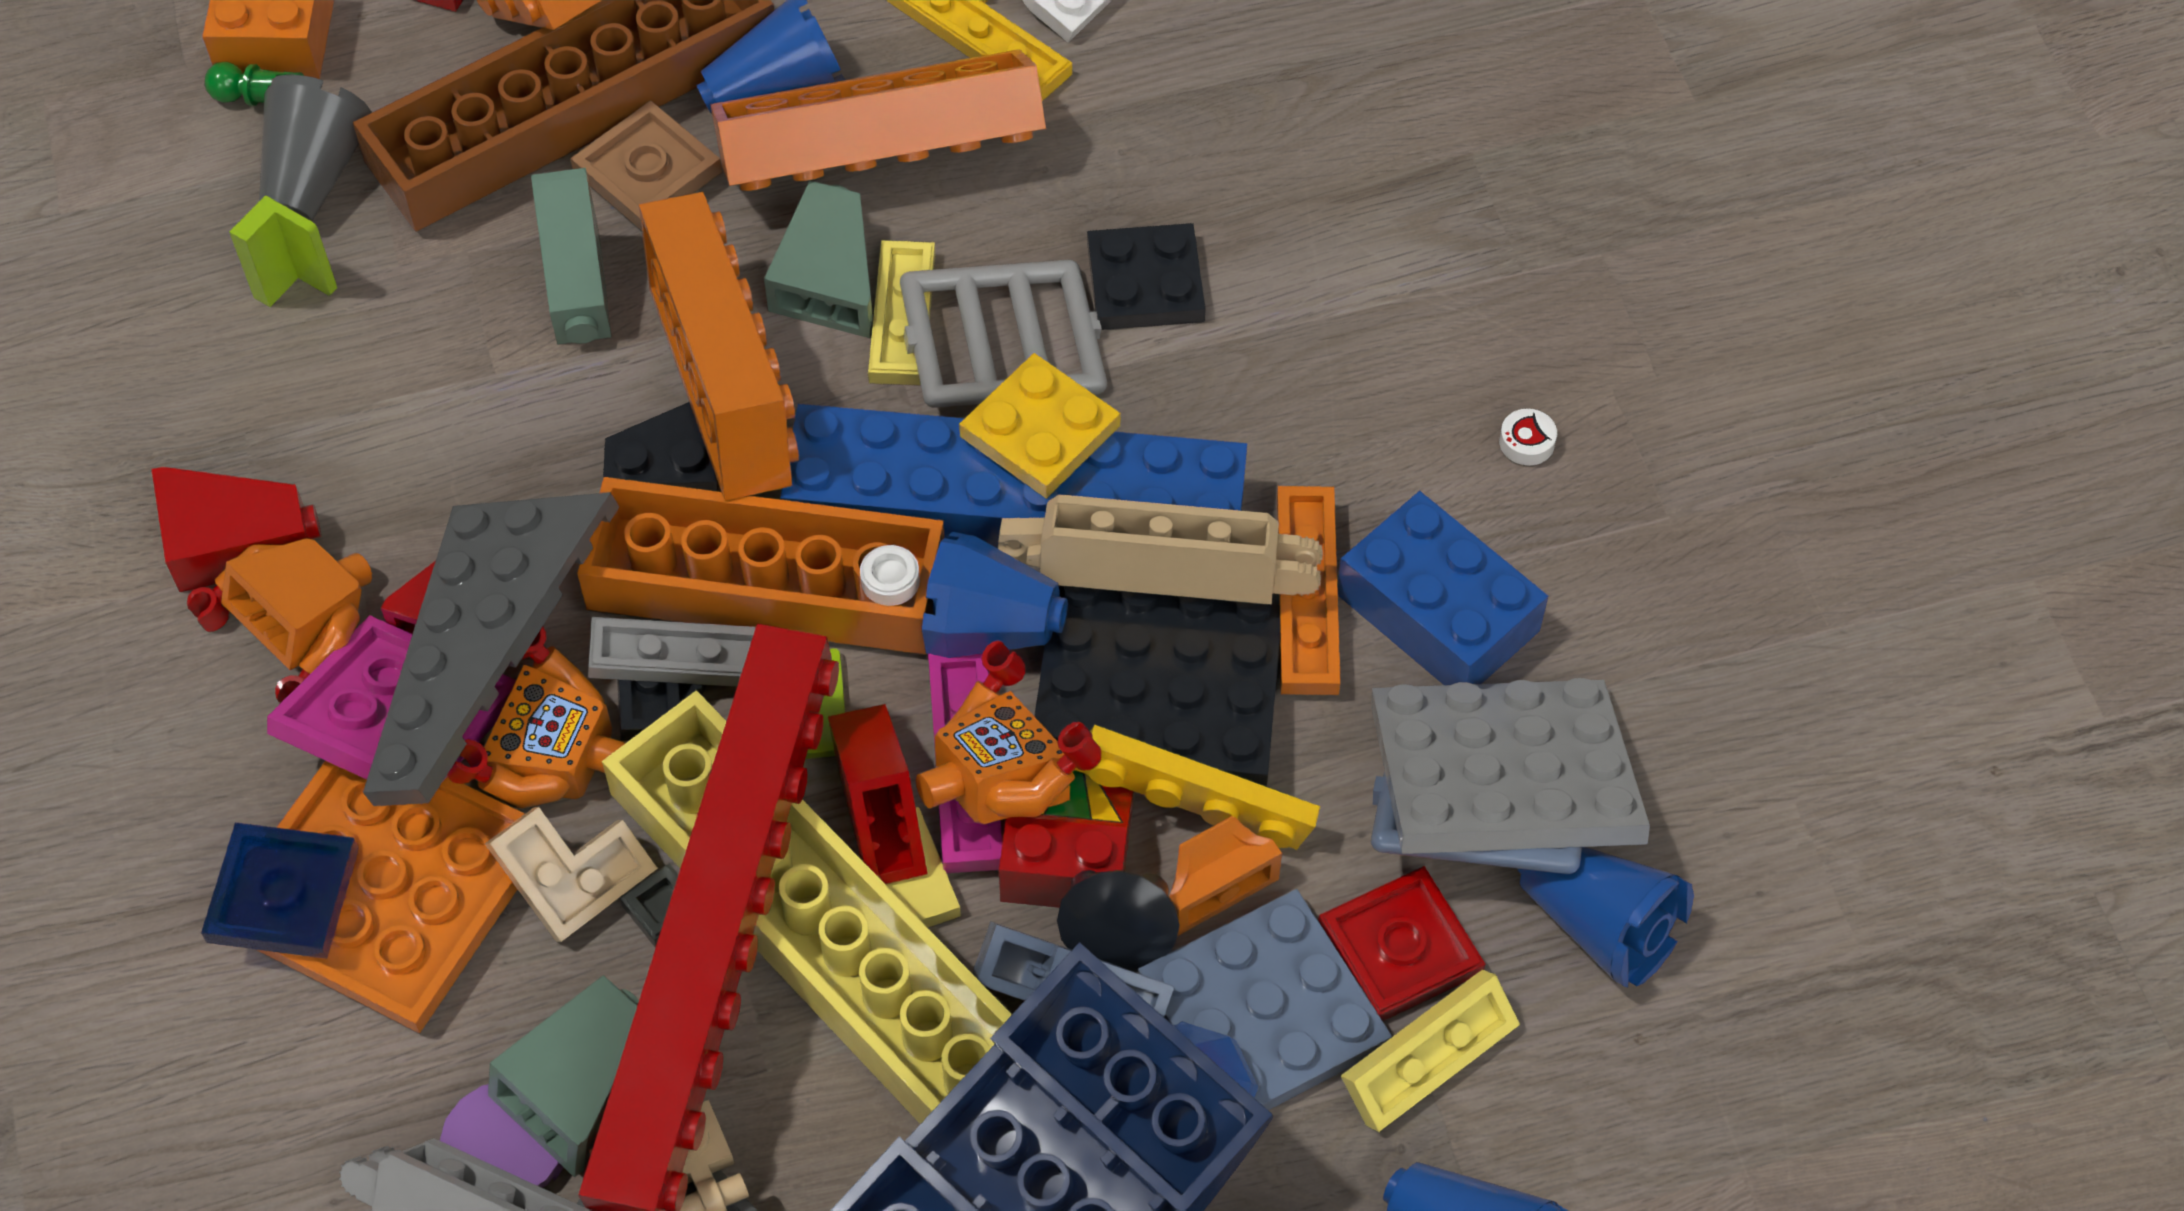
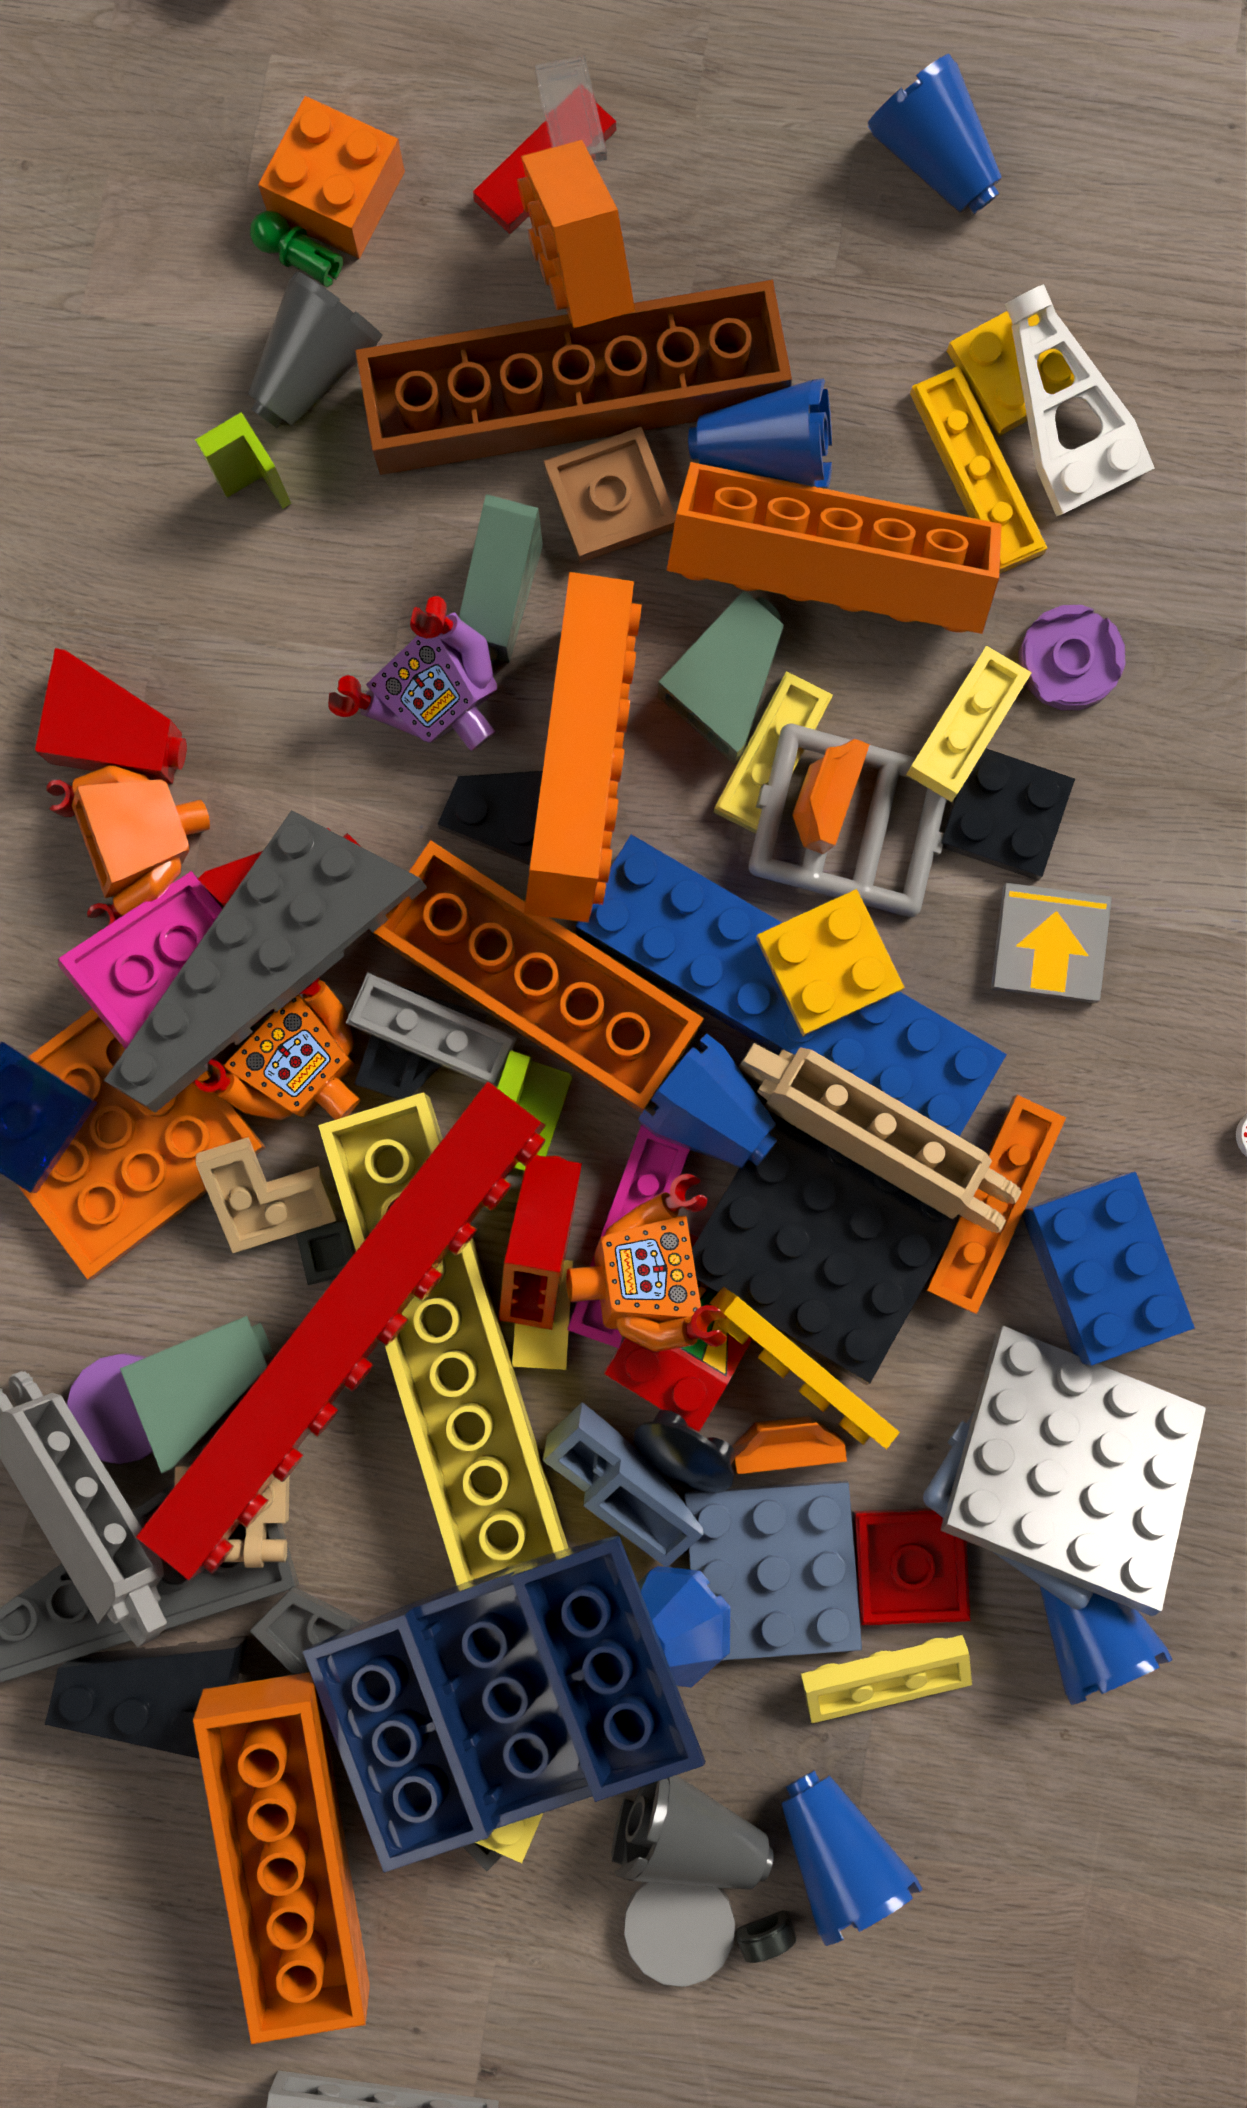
camera: 25 degrees right, 25 degrees up
(545, 359) = (429, 683): none -> torso
(890, 575) = (632, 1057): white tile -> none
(969, 304) = (827, 795): none -> orange slope
(1071, 213) = (968, 724): none -> light yellow plate
(1139, 138) = (1072, 657): none -> medium lavender tile
(1243, 361) = (1051, 943): none -> light grey tile

